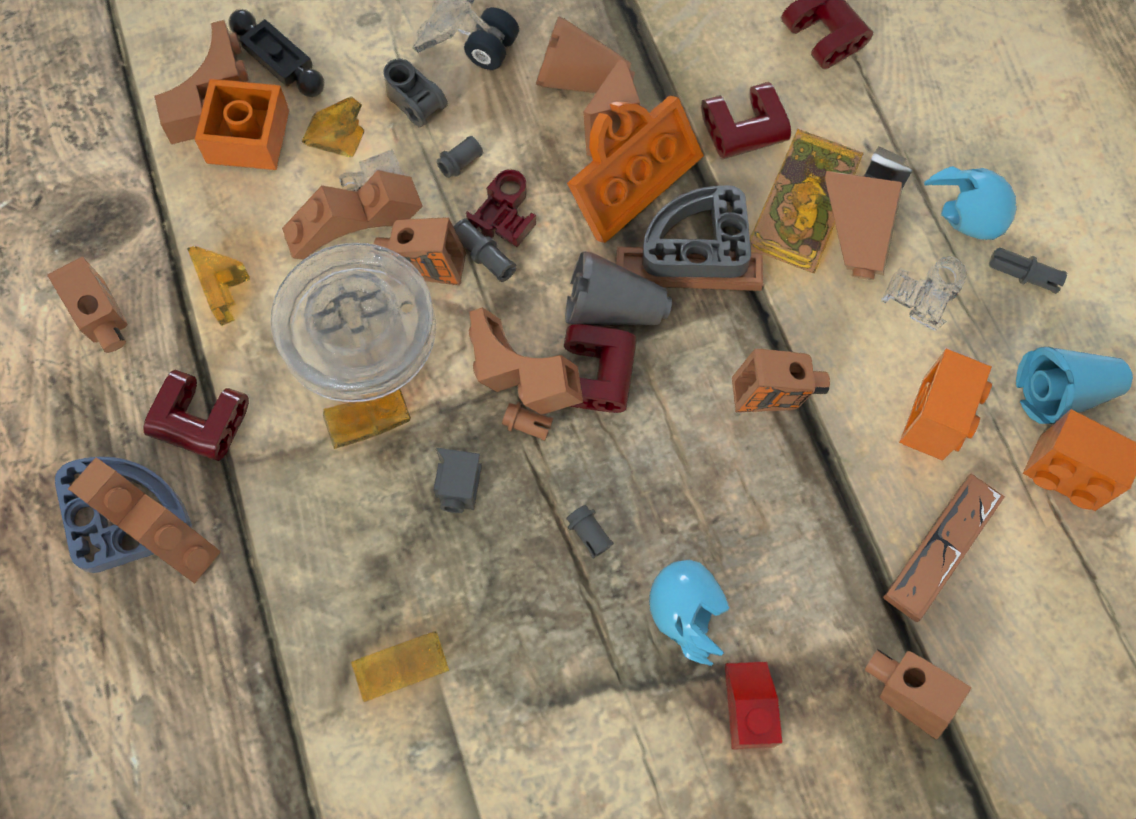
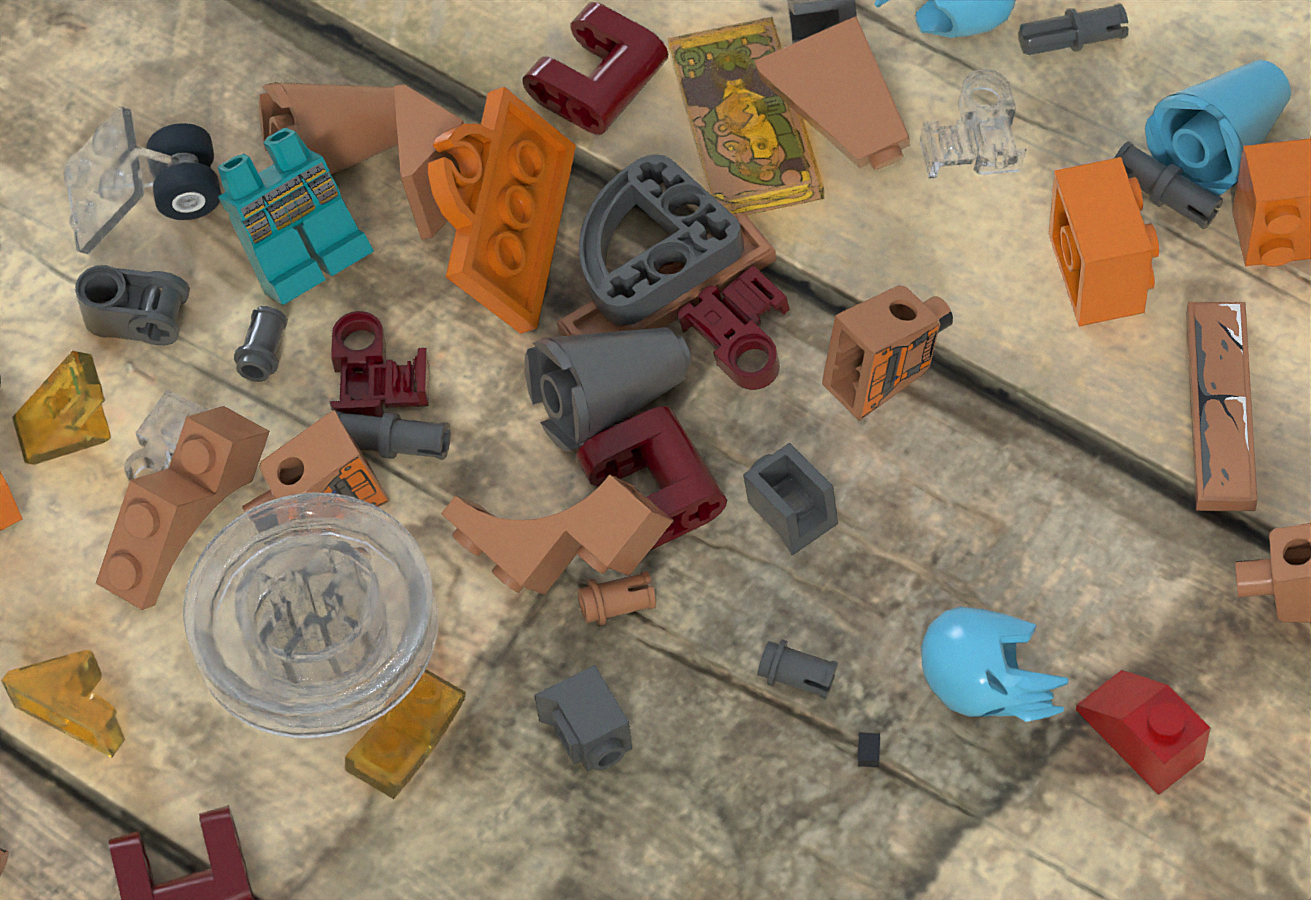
camera: 30 degrees left, 10 degrees down
(518, 84) = (290, 217): none -> teal hips
(594, 604) = (868, 749): none -> black piece
(661, 431) = (791, 497): none -> dark grey window
(711, 307) = (738, 315): none -> dark red piece
(1012, 396) = (1169, 186): none -> dark grey pin

